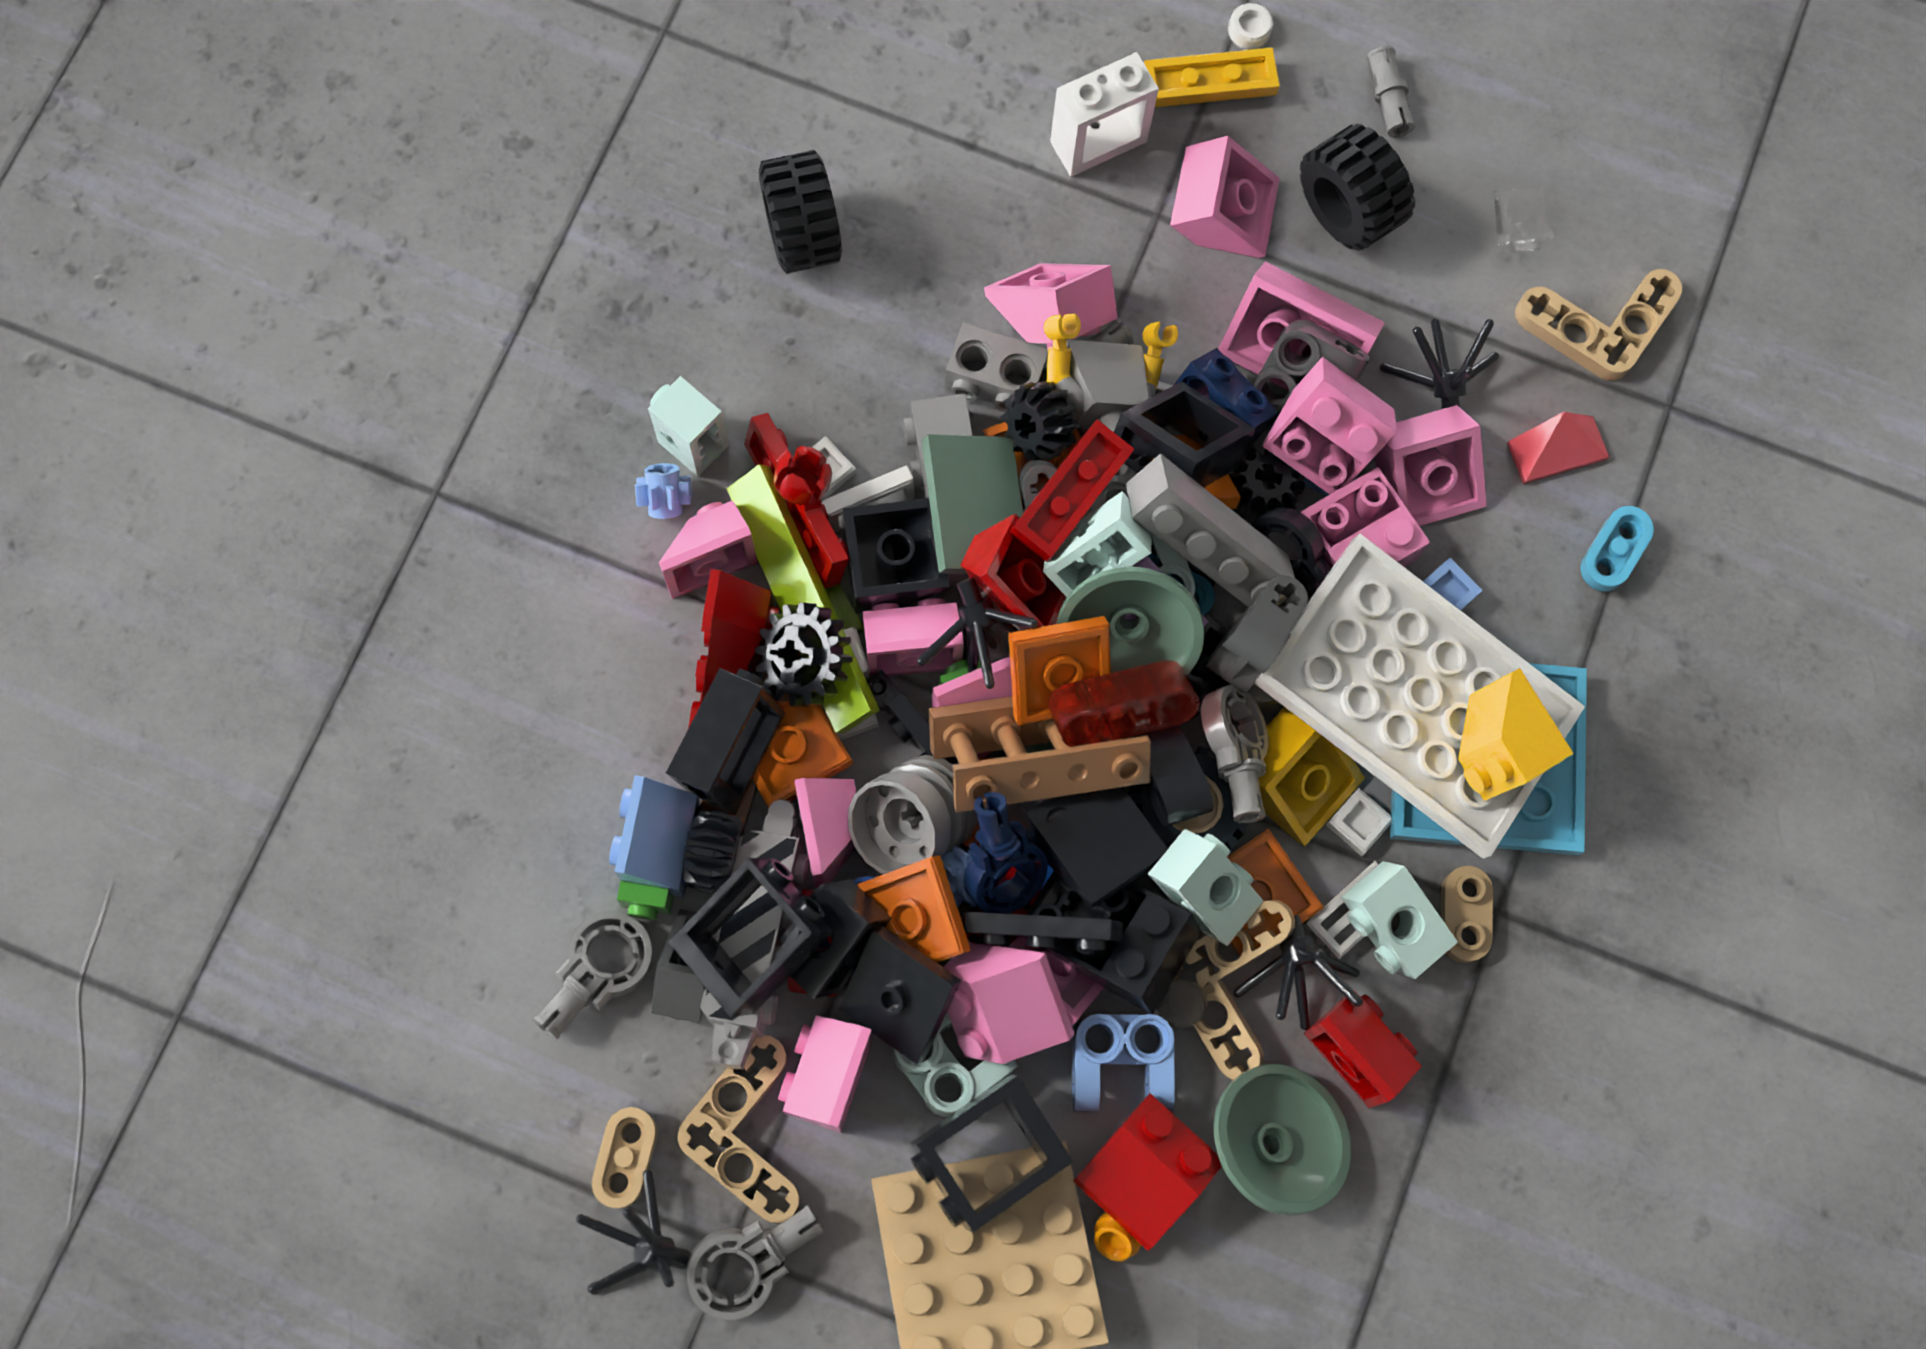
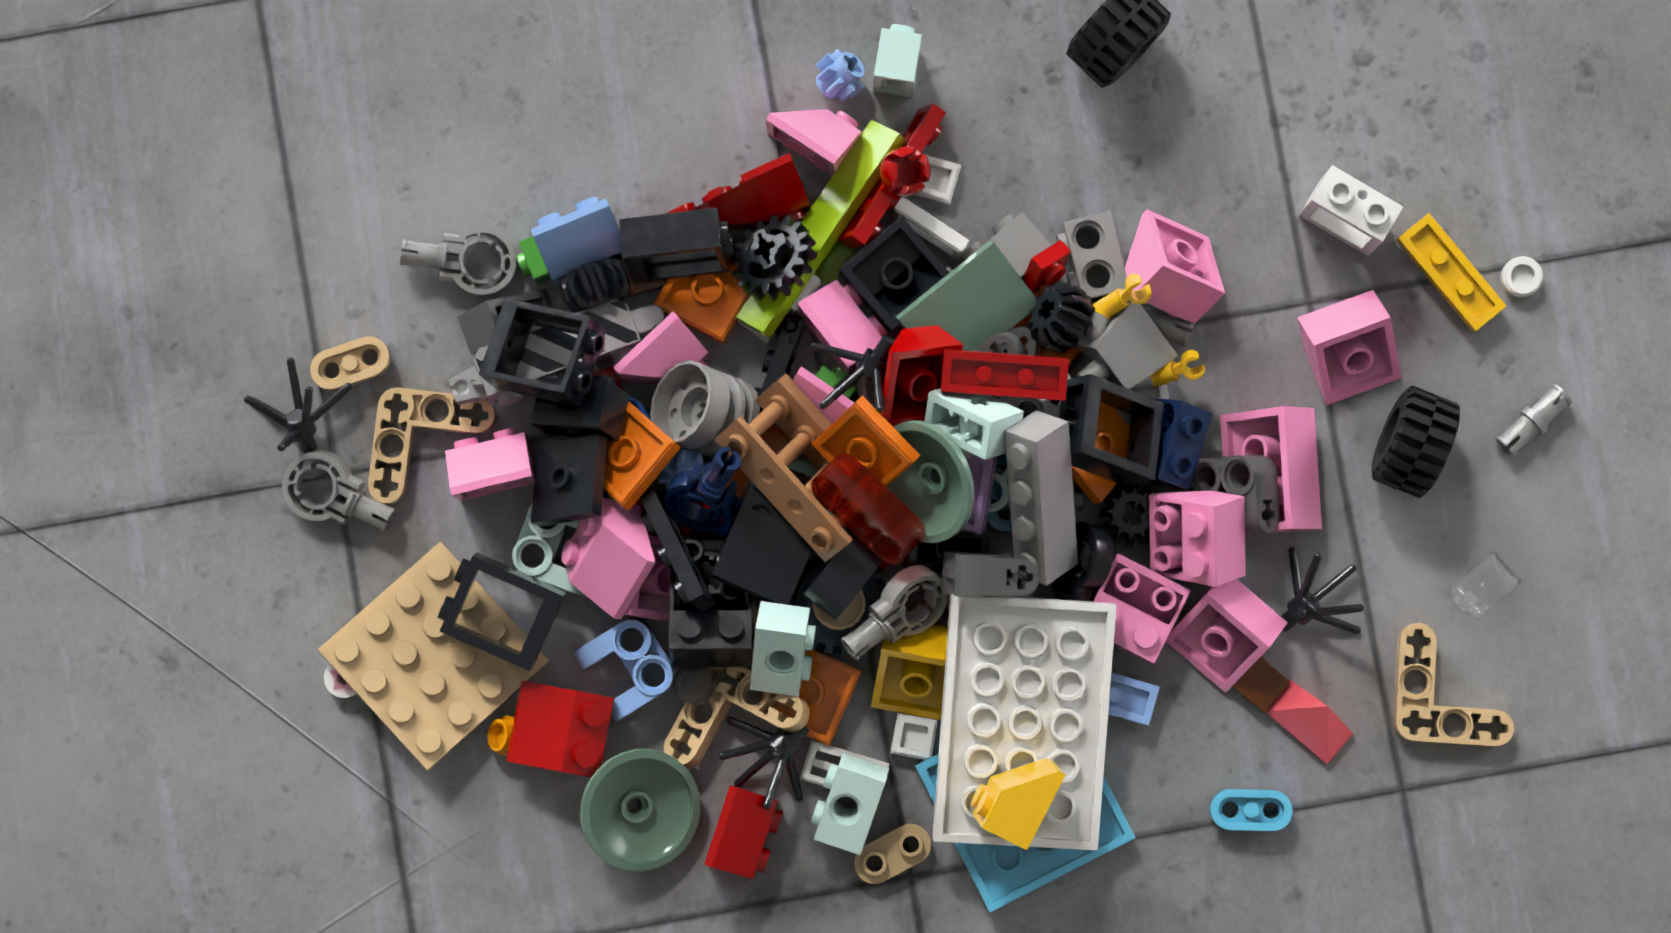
camera: 65 degrees right, 10 degrees up
(979, 407) = (1047, 266): none -> red plate
(1503, 469) = (1261, 685): none -> reddish brown tile

